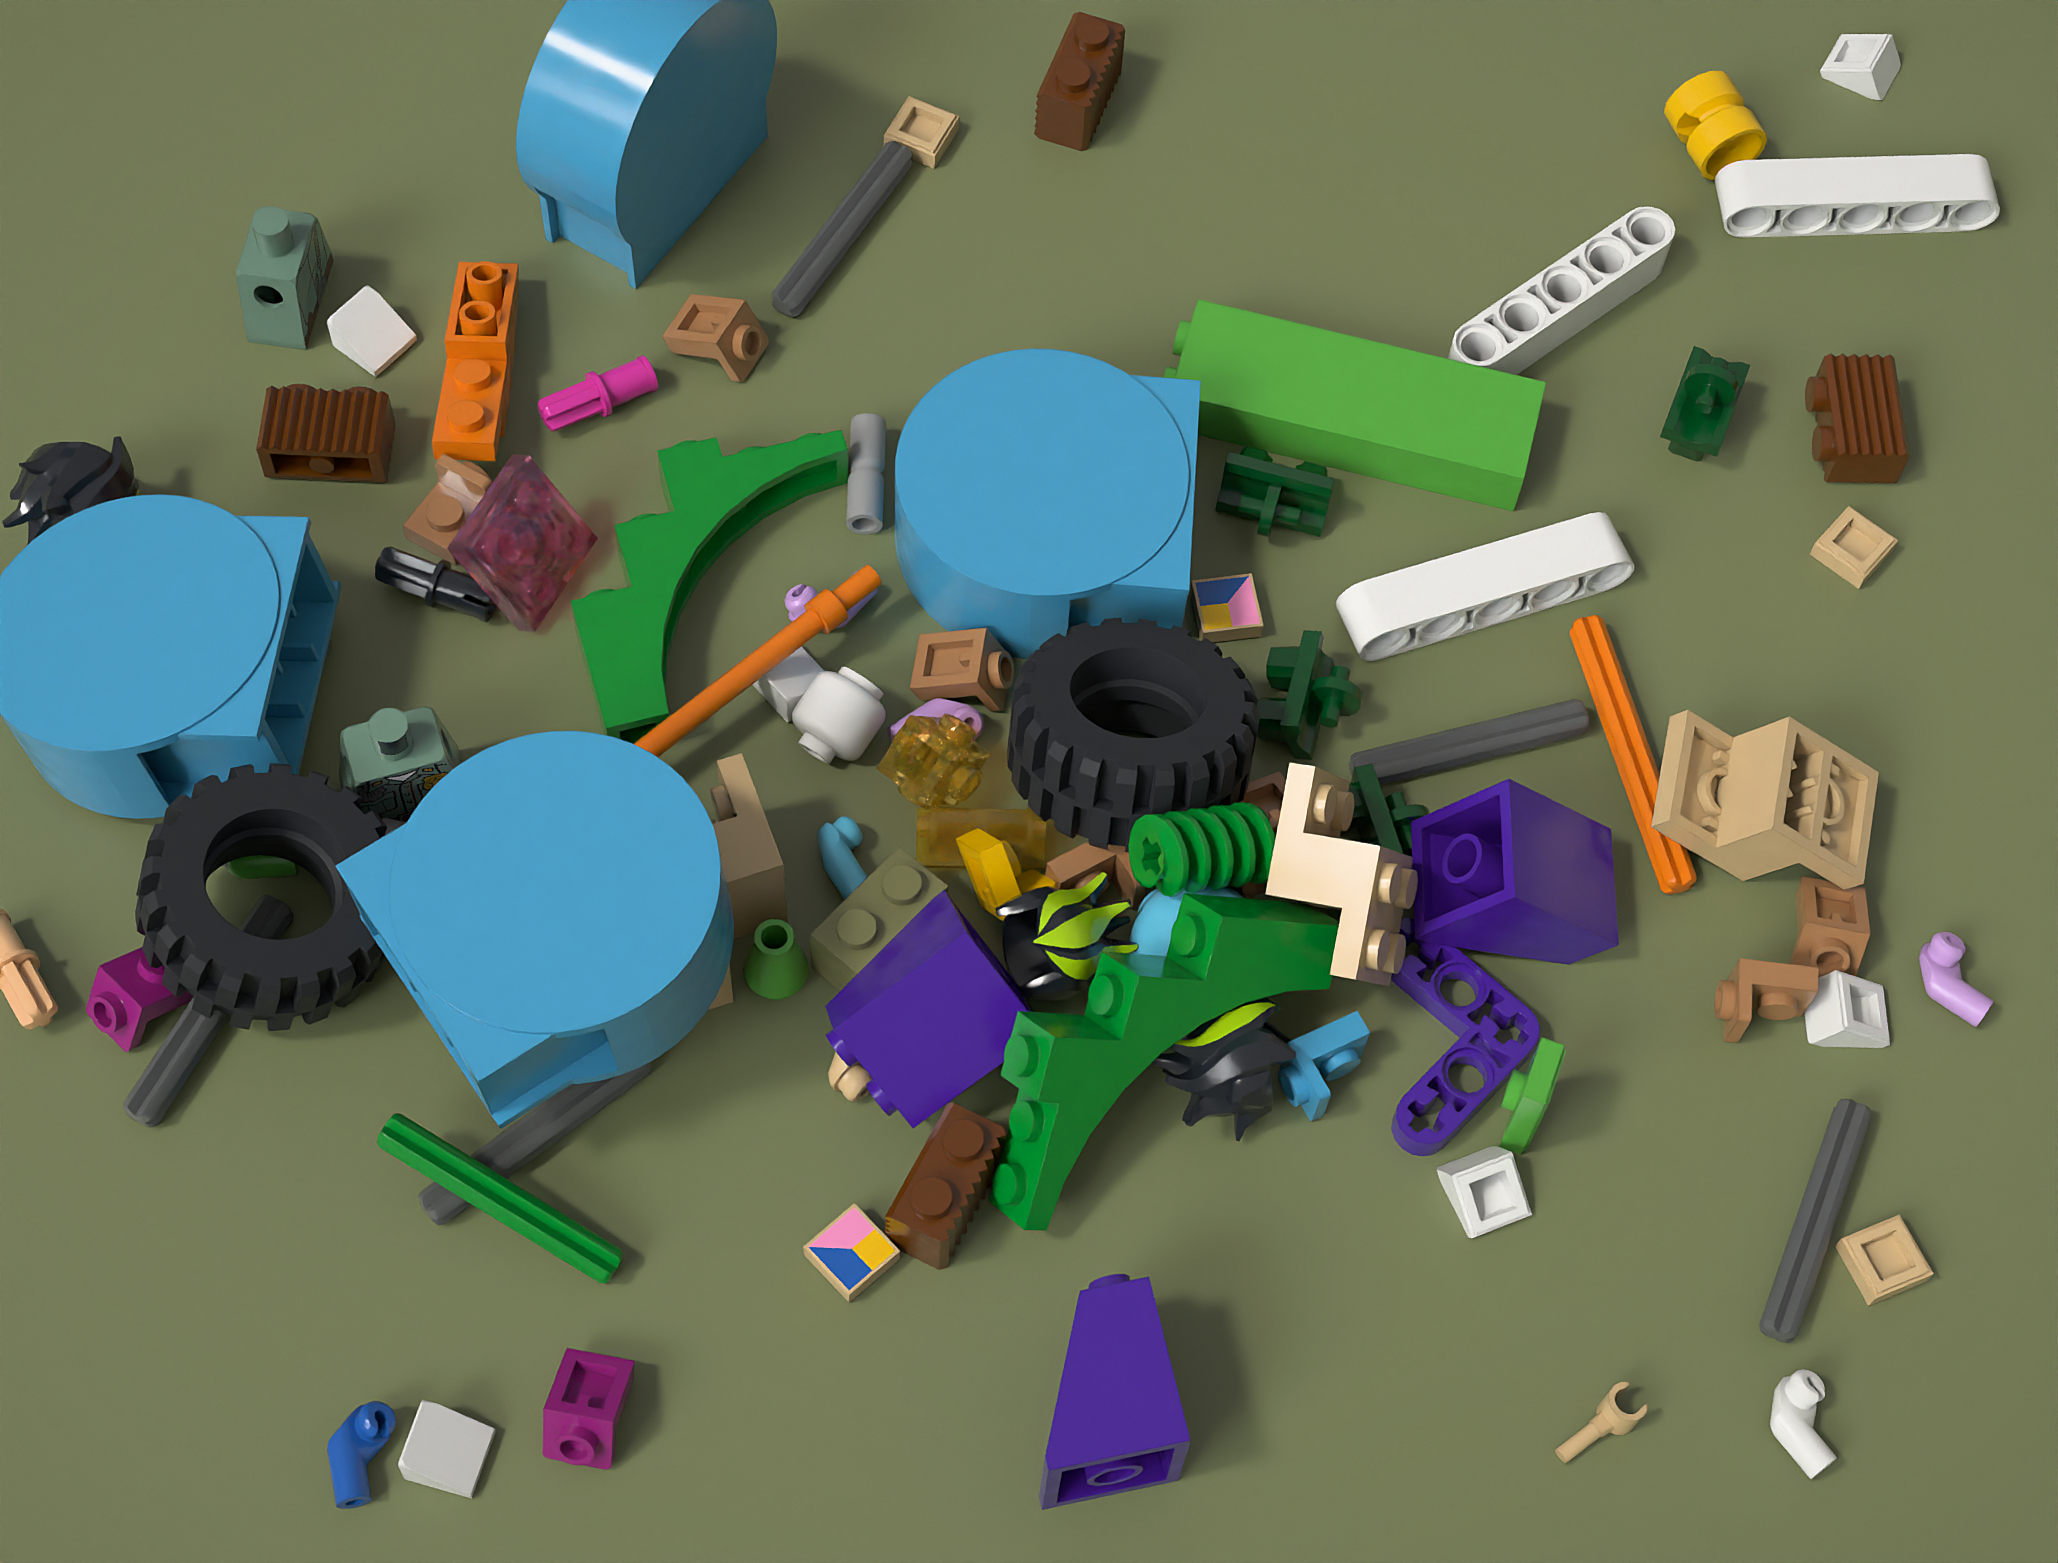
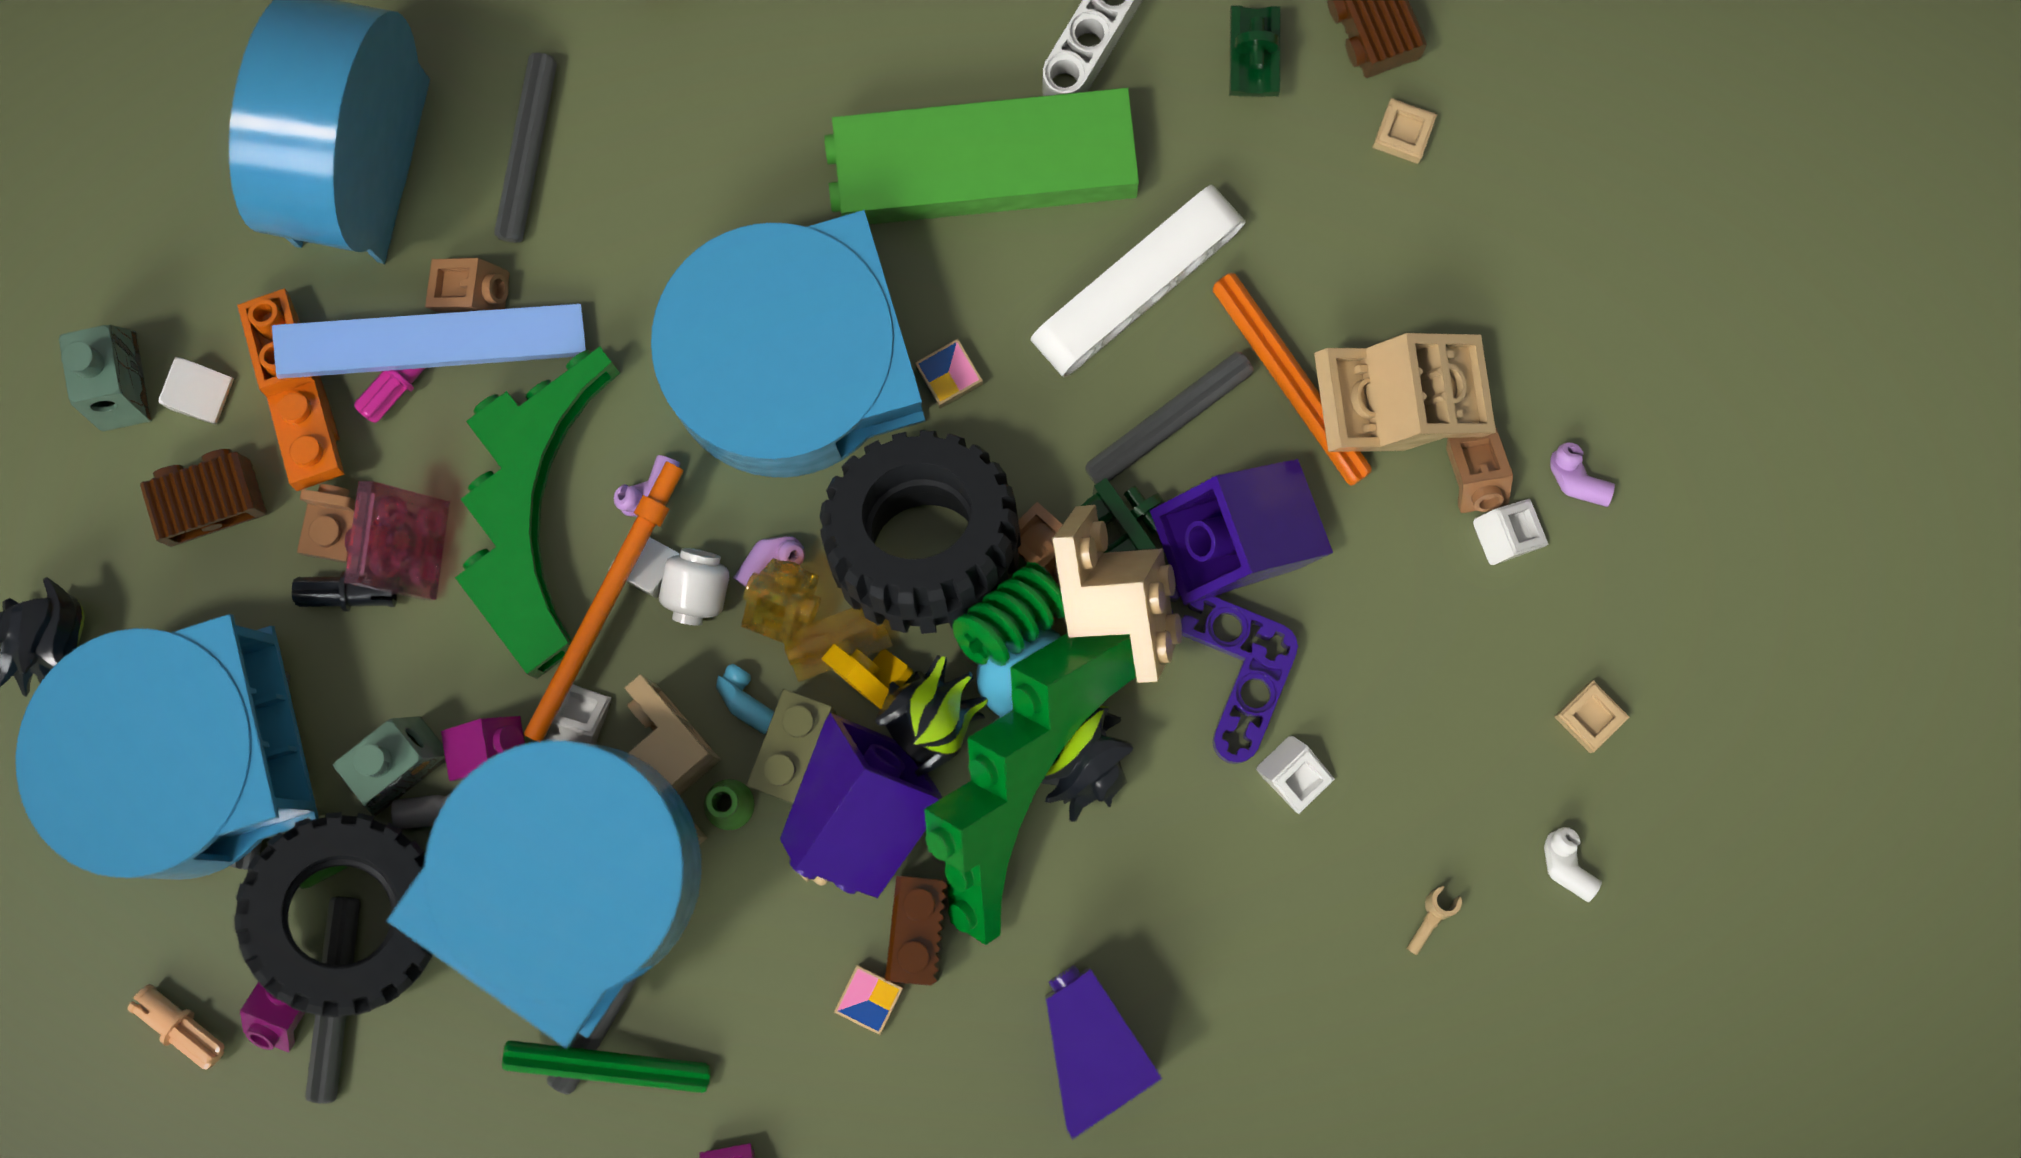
camera: 15 degrees left, 20 degrees up
(650, 361) = (427, 340): none -> light blue tile
(866, 481) = (630, 359): light grey piece -> none
(923, 130) = (552, 29): tan tile -> none
(962, 666) = (770, 507): medium nougat bracket -> none
(1085, 862) = (924, 647): medium nougat bracket -> none
(1275, 492) = (951, 264): dark green hips -> none
(1315, 695) = (1042, 429): dark green hips -> none
(1323, 1052) = (1151, 718): dark azure bracket -> none
(1530, 1095) = (1308, 703): bright green plate -> none
(1767, 987) = (1454, 541): medium nougat bracket -> none
(1815, 1221) = (1535, 705): dark grey axle -> none

